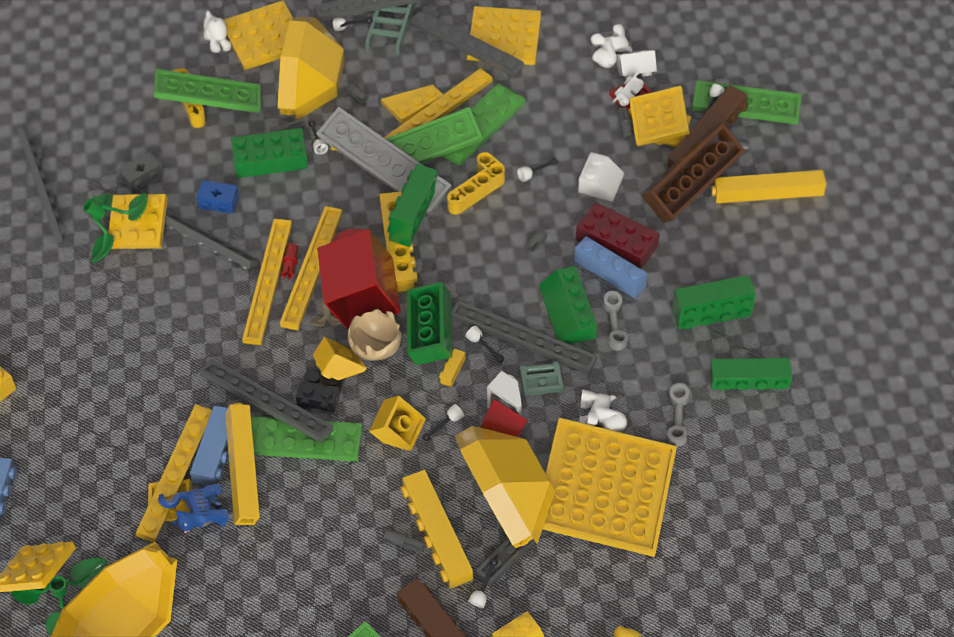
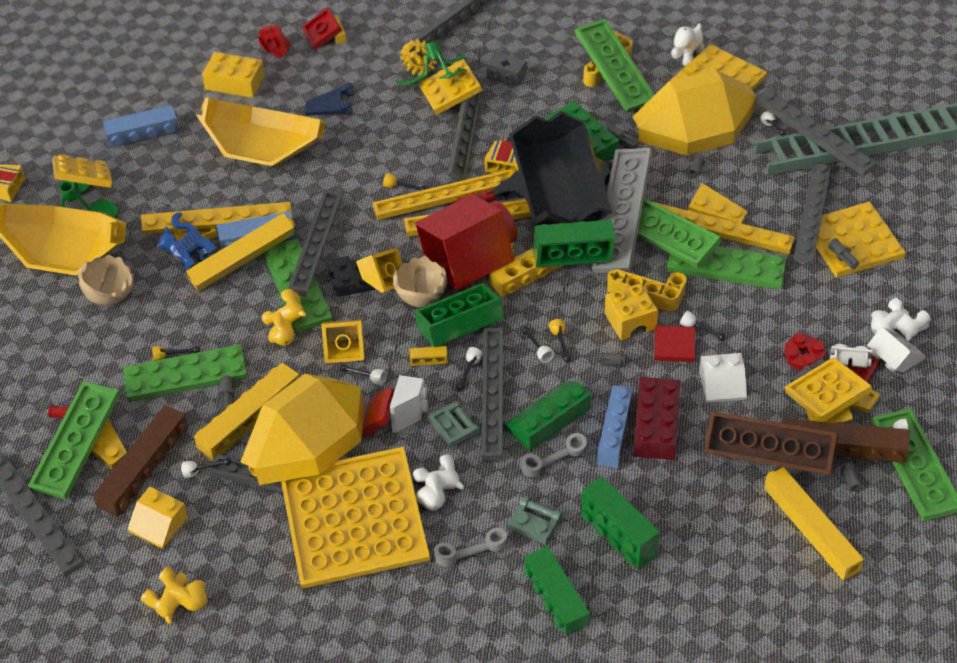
camera: 65 degrees right, 5 degrees down
(75, 326) = (331, 102): none -> dark blue flag
(77, 230) = (416, 59): none -> yellow gear
(91, 389) = (257, 132): none -> yellow panel
(203, 592) = (105, 280): none -> tan piece
(217, 197) = (509, 119): blue brick -> none
(221, 316) = (391, 181): none -> hinge
(254, 218) = (501, 157): none -> yellow torso
(319, 581) = (160, 353): none -> hinge
(321, 182) = (557, 171): none -> black cylinder
(354, 569) = (183, 373): none -> bright green plate
(359, 467) = (282, 331): none -> yellow animal
(480, 264) = (557, 327): none -> hinge
(498, 204) = (630, 309): none -> yellow piece
(500, 284) = (544, 353): none -> white hinge
(518, 45) = (843, 253): none -> dark grey axle
(542, 194) = (674, 343): none -> red tile
(604, 110) = (803, 343): none -> red plate
(673, 367) = (531, 525): none -> sand green plate

